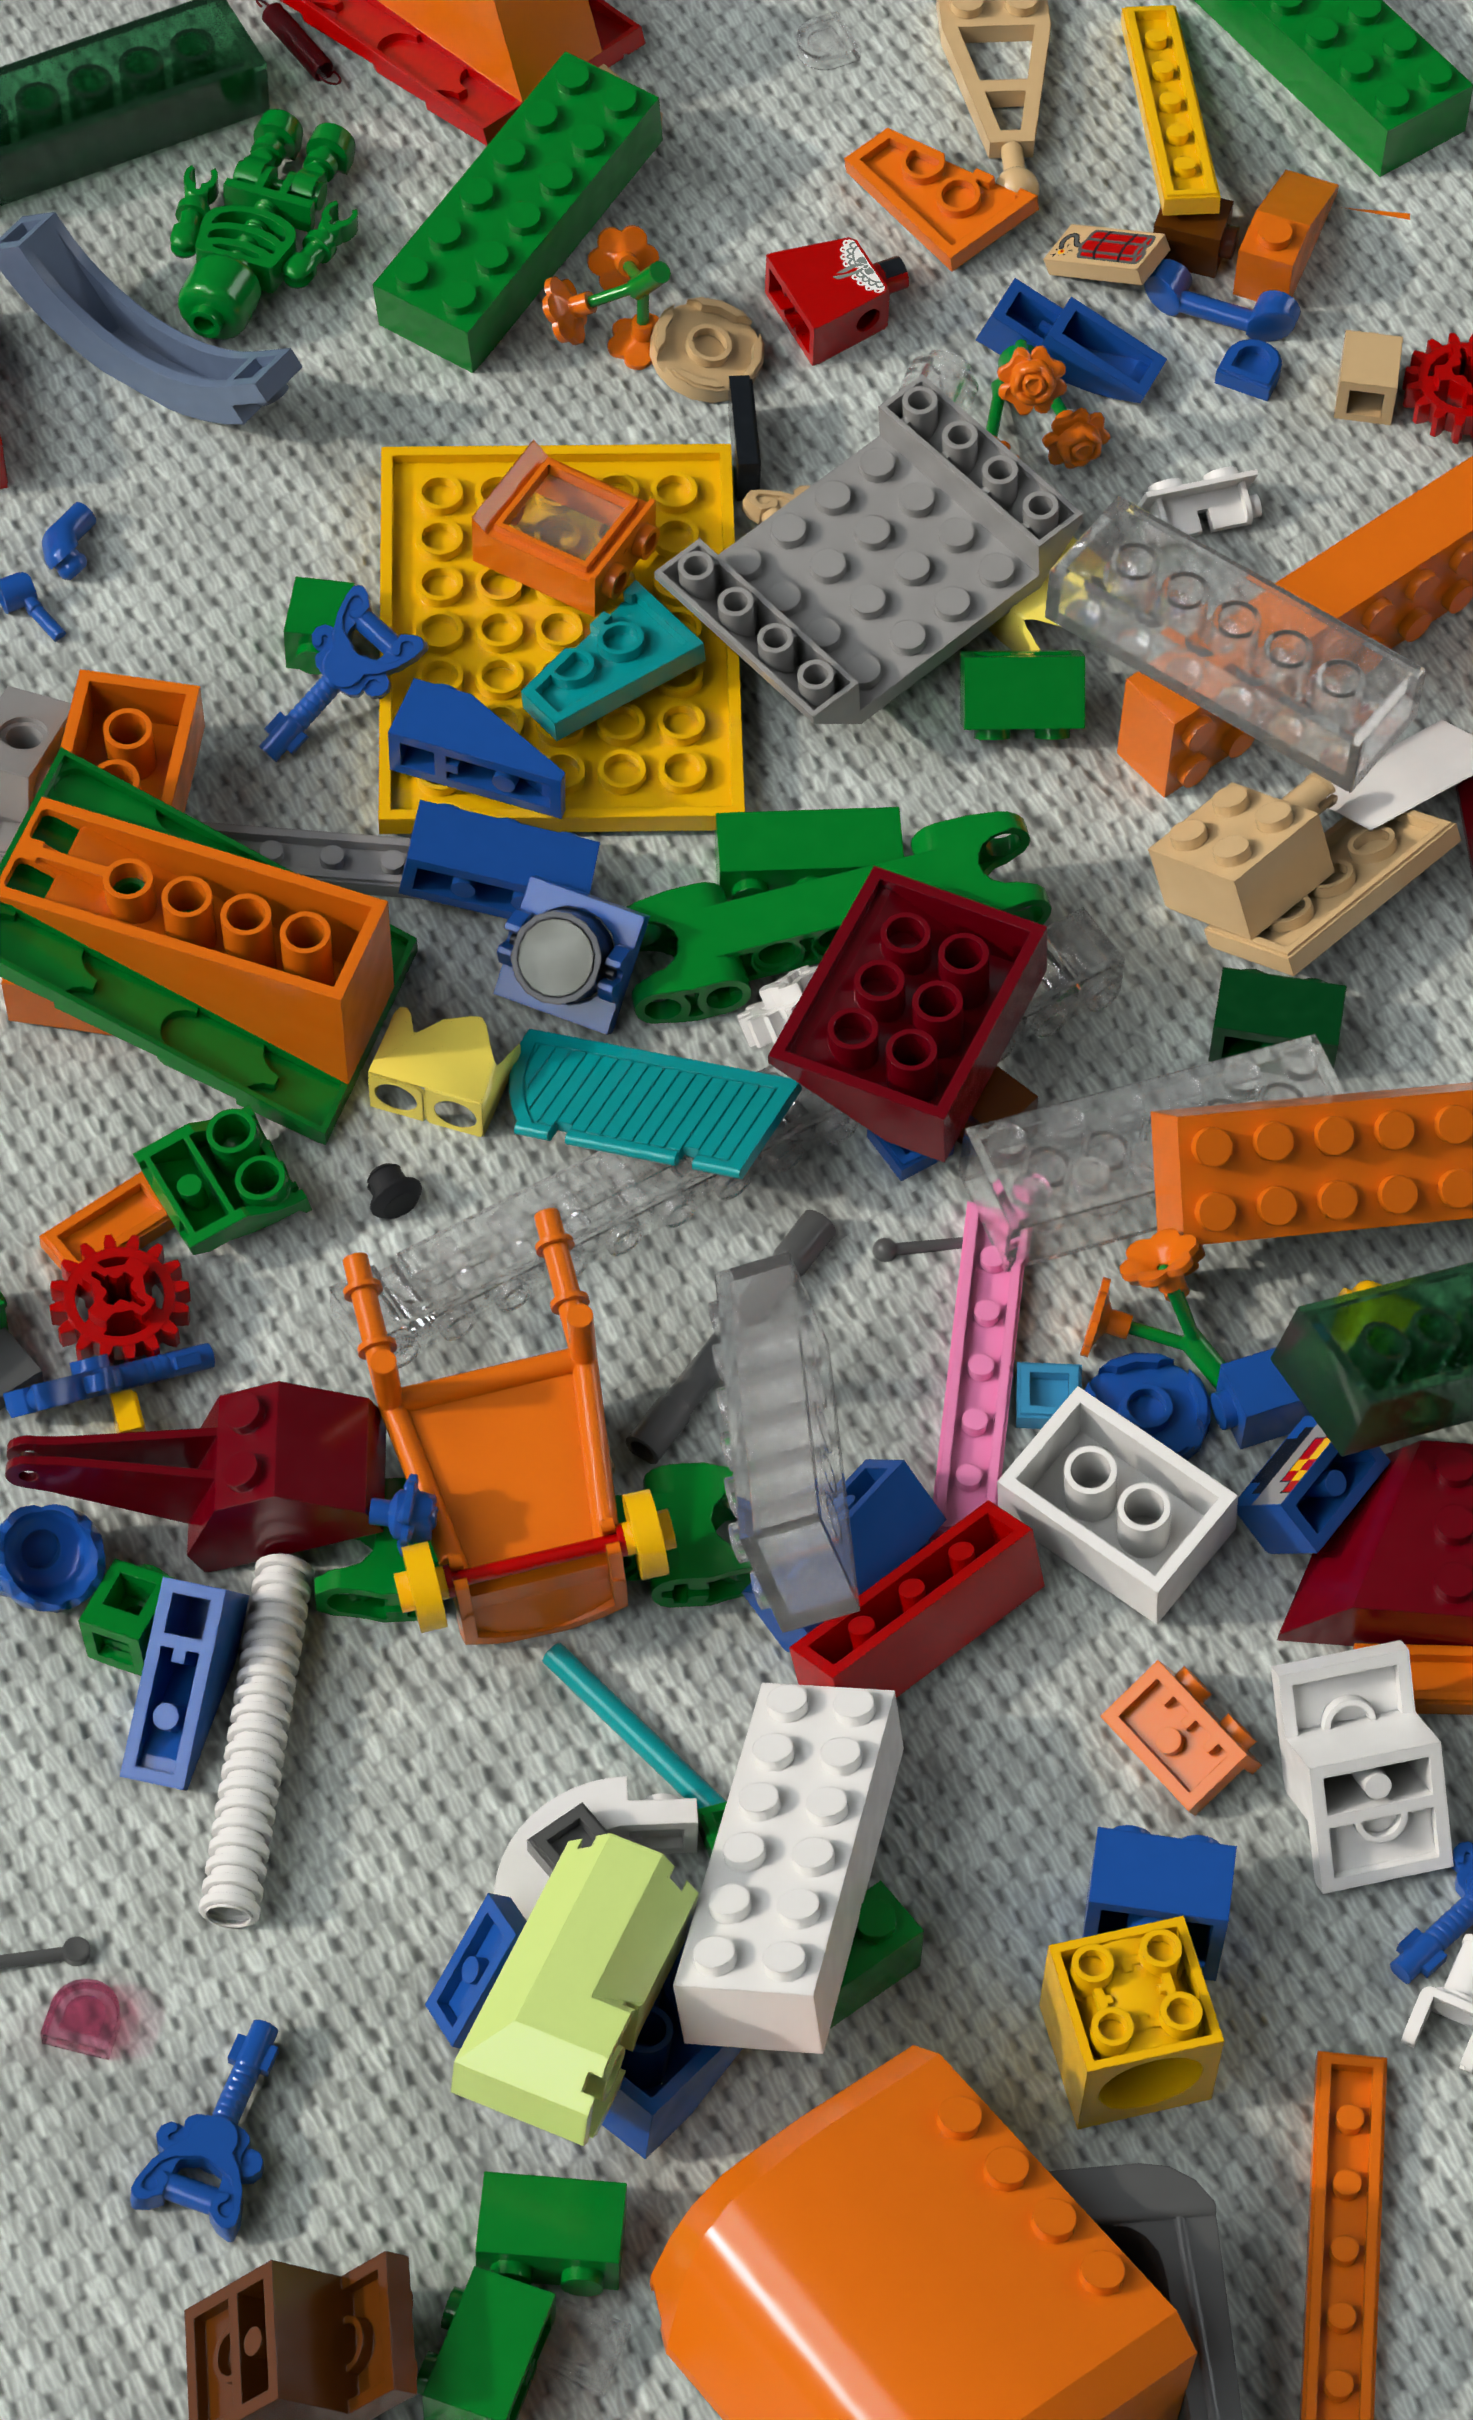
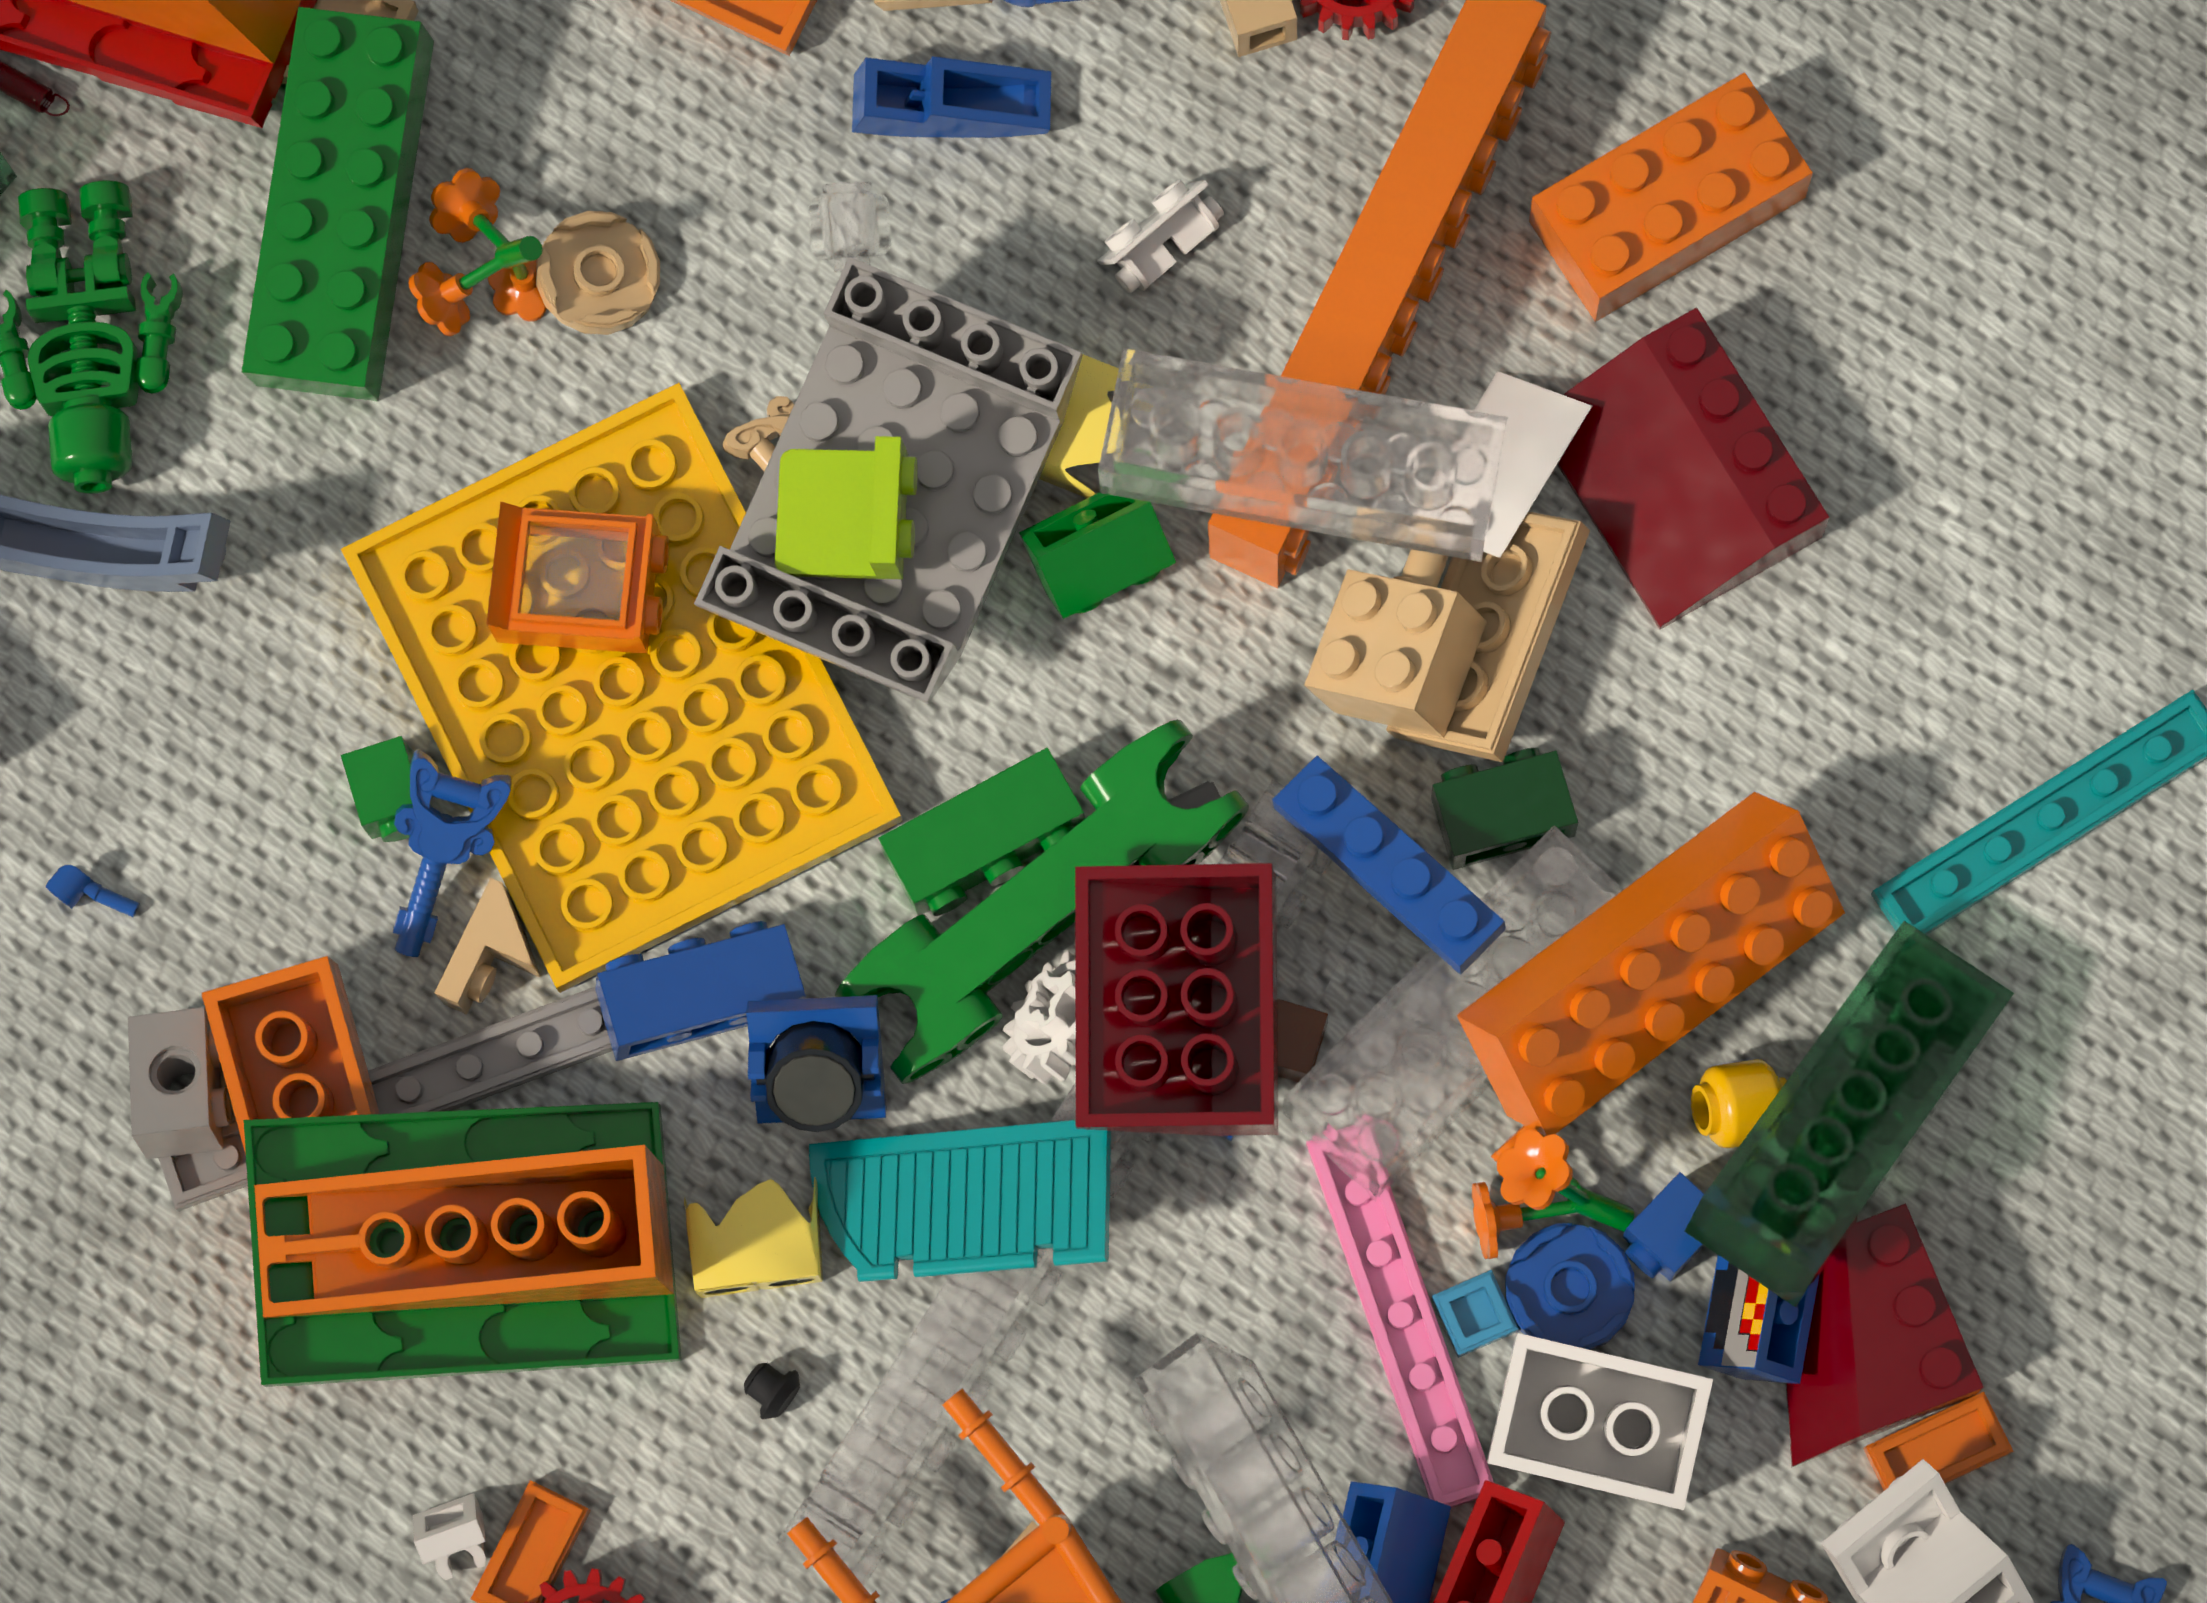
camera: 15 degrees left, 20 degrees up
(51, 1175) = (448, 1530): none -> white tile
(62, 539) = (81, 803): blue arm -> none
(213, 1176) = (601, 1465): green slope -> none
(338, 763) = (490, 934): none -> tan slope
(467, 747) = (595, 878): blue slope -> none
(616, 663) = (697, 711): teal wing -> none
(673, 1410) = (1144, 1498): dark grey piece -> none
(744, 435) = (687, 366): black tile -> none
(822, 558) = (846, 511): none -> lime bracket
(832, 294) = (691, 149): red torso -> none
(886, 1249) = (1254, 1224): dark grey hinge -> none
(1034, 379) = (953, 205): orange plant -> none
(1152, 997) = (1389, 864): none -> blue plate
(1250, 368) = (1134, 38): blue tile -> none

